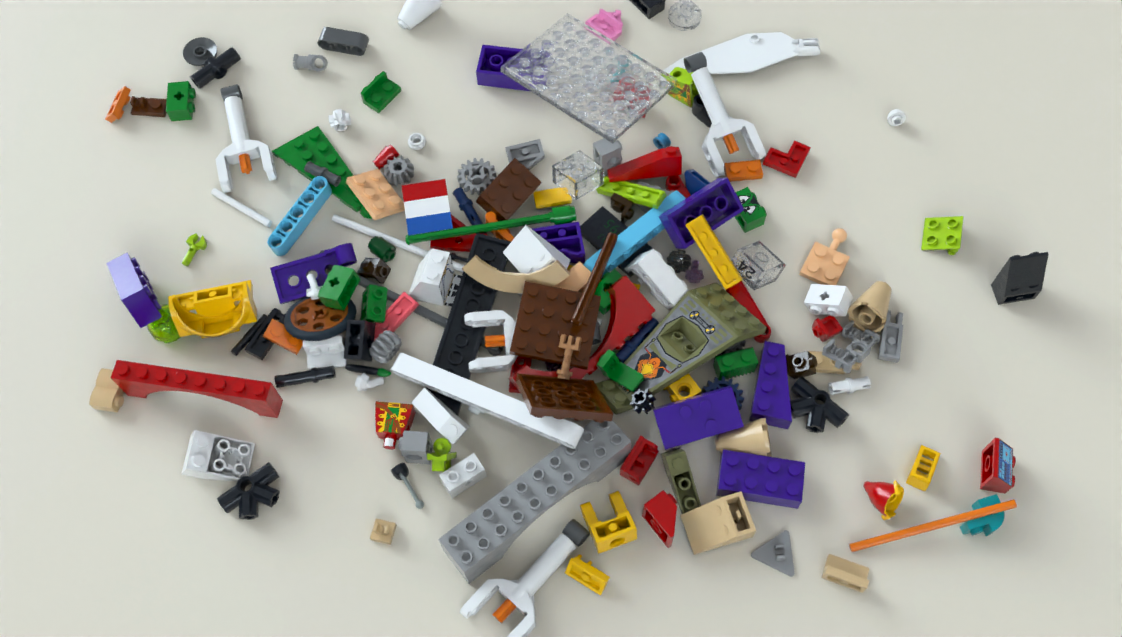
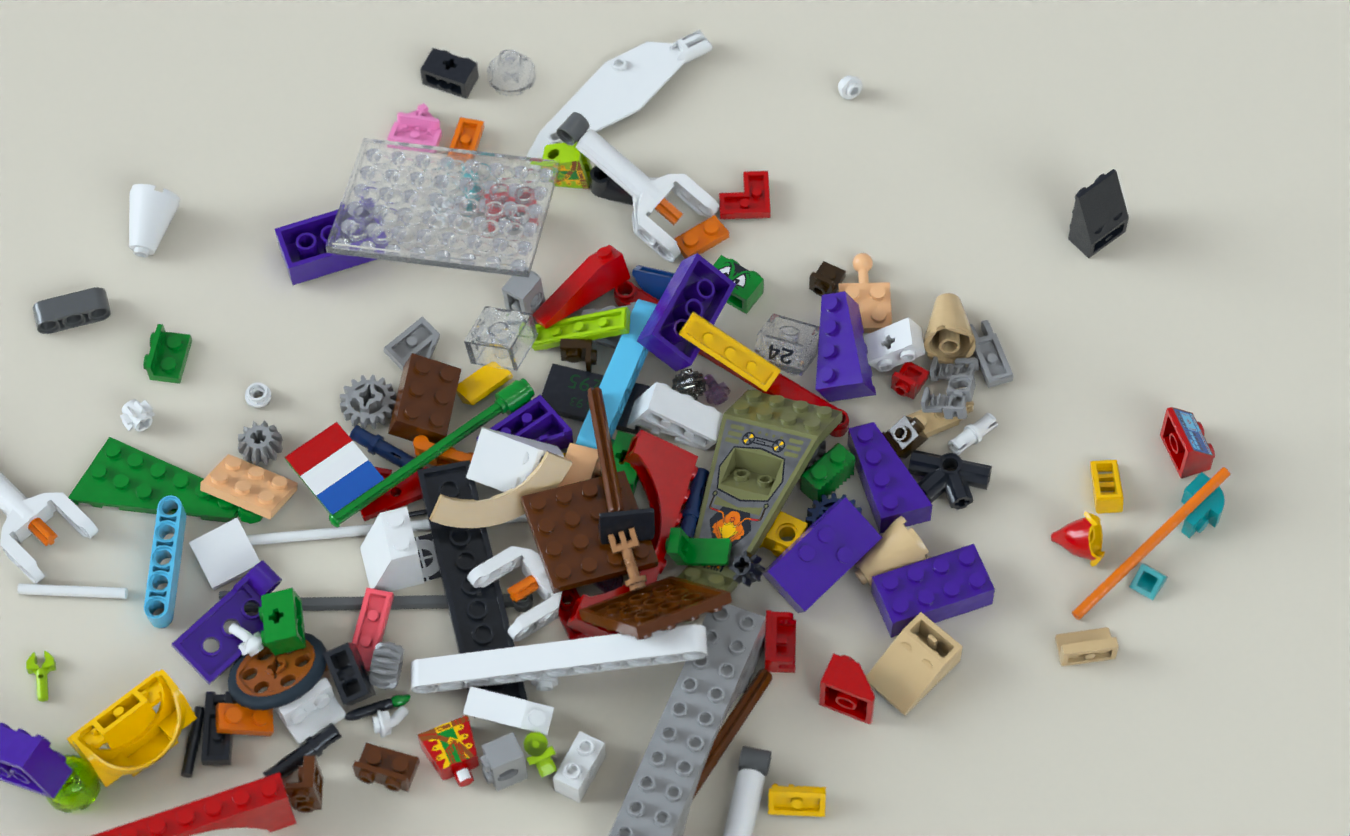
camera: 30 degrees left, 5 degrees down
(293, 400) = (308, 792): none -> reddish brown bracket
(308, 62) = (42, 359): light grey connector -> none
(322, 171) = (156, 493): dark grey pin -> none
(337, 228) = (224, 553): none -> white tile
(349, 410) = (386, 767): none -> reddish brown bracket
(374, 268) = (307, 579): dark brown bracket -> none
(374, 304) = (335, 622): green bracket -> none
(382, 248) = (301, 551): dark green brick -> none
(386, 154) = (229, 432): red cone -> none
(401, 472) = (500, 804): hinge -> none
(574, 501) = (734, 722): none -> reddish brown axle
(588, 334) = (613, 522): none -> black slope
(614, 531) = (799, 736): yellow brick -> none
(635, 40) = (467, 134): none -> orange plate
(662, 141) = (579, 248): dark azure bush -> none
(681, 479) = (839, 635): olive slope -> none
(777, 554) = (998, 666): light grey piece -> none
(791, 286) = (842, 353): none -> dark purple wedge
(808, 235) = (826, 279): none -> dark brown bracket
(916, 550) = (1148, 581): none -> teal slope
(942, 234) = (981, 204): lime hinge -> none

